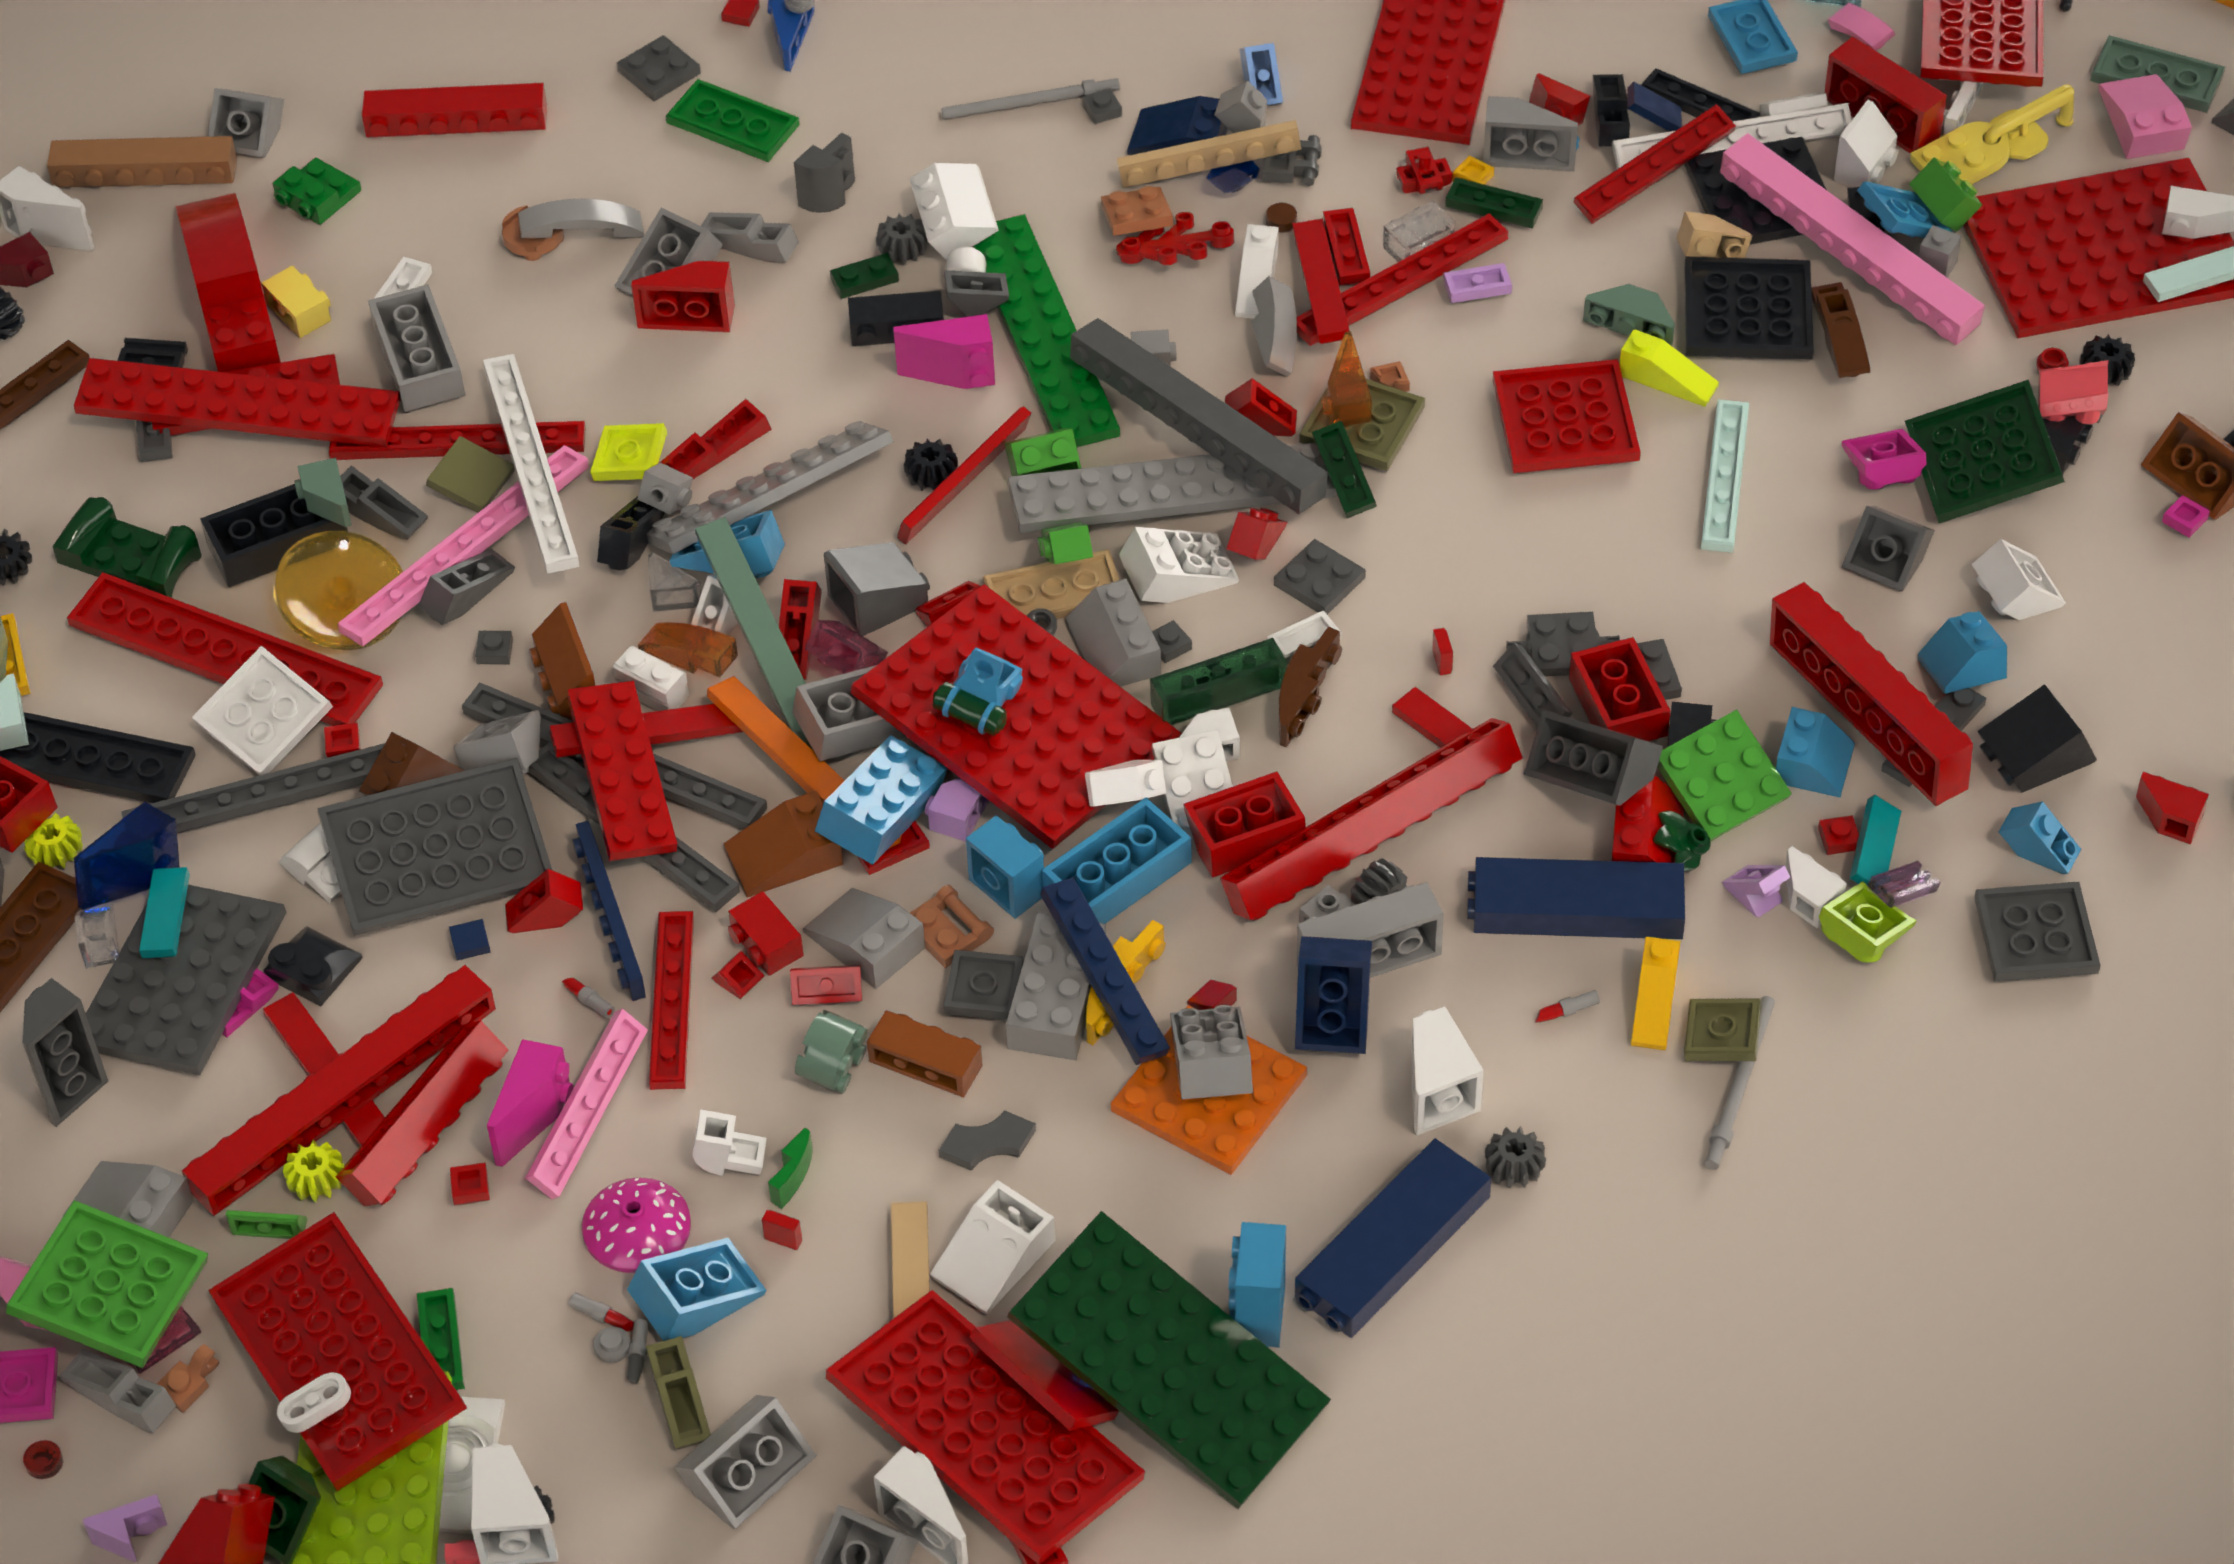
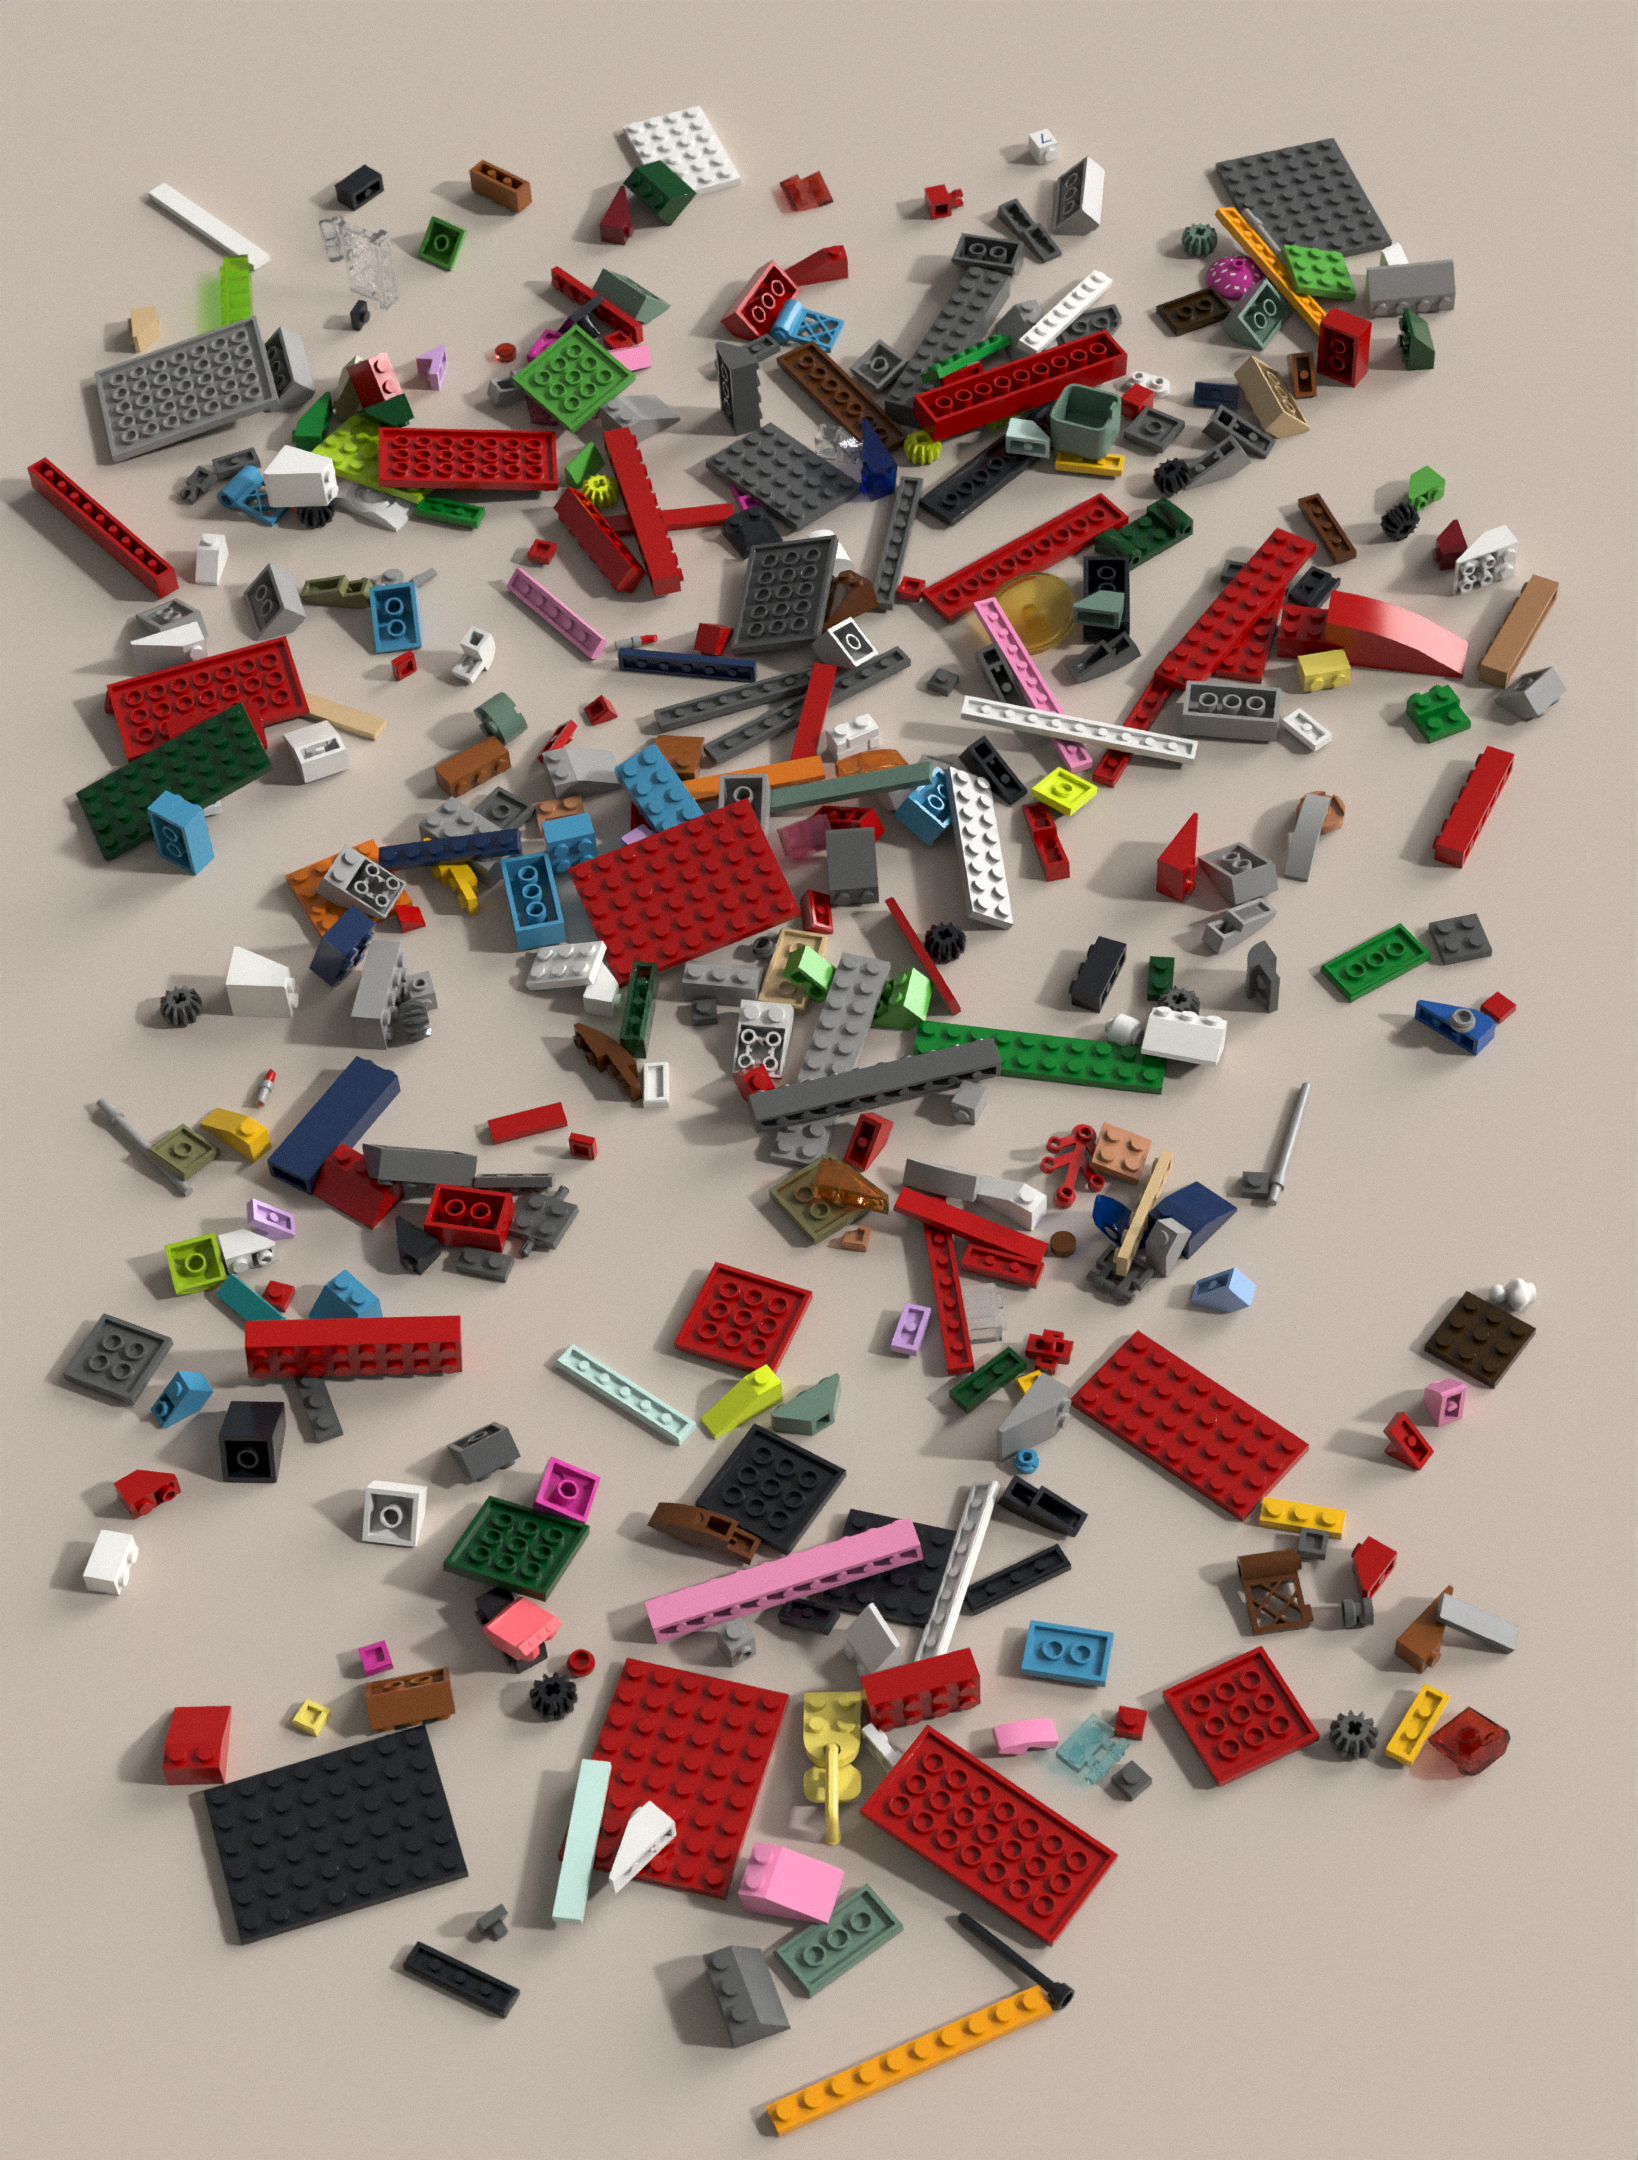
camera: 120 degrees right, 0 degrees up
(164, 912) = (825, 471): teal tile -> none
(186, 1382) = (508, 413): nougat plate -> none
(262, 712) = (954, 553): white plate -> none
(313, 1402) = (430, 430): white plate -> none
(469, 939) = (717, 604): dark blue tile -> none
(470, 475) = (1100, 705): olive tile -> none
(529, 1098) = (573, 580): dark pink slope -> none
(561, 659) = (889, 701): dark orange slope -> none
(621, 770) = (778, 689): red plate -> none
(625, 1238) = (460, 610): dark pink dish -> none
(665, 488) = (1012, 794): light grey brick -> none
(671, 1000) = (606, 677): red tile -> none
(765, 933) = (615, 727): red brick -> none
(796, 1162) = (441, 685): green slope -> none
(947, 352) = (1032, 981): dark pink slope -> none
(973, 1144) = (397, 773): dark grey tile -> none
(976, 291) = (1091, 1018): dark grey slope -> none
(980, 692) = (692, 855): dark azure piece -> none
(1125, 782) = (585, 921): white slope -> none
(1242, 822) = (515, 974): red slope -> none
(1319, 577) = (701, 1115): dark grey plate -> none
(1344, 469) = (778, 1159): dark green plate -> none
(1371, 819) = (471, 1043): red brick -> none
(1392, 1238) = (177, 926): dark blue brick -> none
(1559, 98) = (1063, 1466): red slope -> none
(1654, 107) = (1016, 1529): dark blue tile -> none
(1654, 164) = (956, 1500): red tile -> none
(1683, 838) = (332, 1193): dark green plate -> none
(1711, 237) = (854, 1492): tan slope -> none
(1722, 775) = (364, 1240): bright green plate -> none
(1793, 104) = (966, 1629): white plate -> none
(1898, 880) = (205, 1280): tile -> none
(1899, 210) = (783, 1630): dark azure plate -> none
(1946, 193) = (789, 1673): bright green brick -> none
(1965, 653) = (352, 1438): dark azure slope -> none

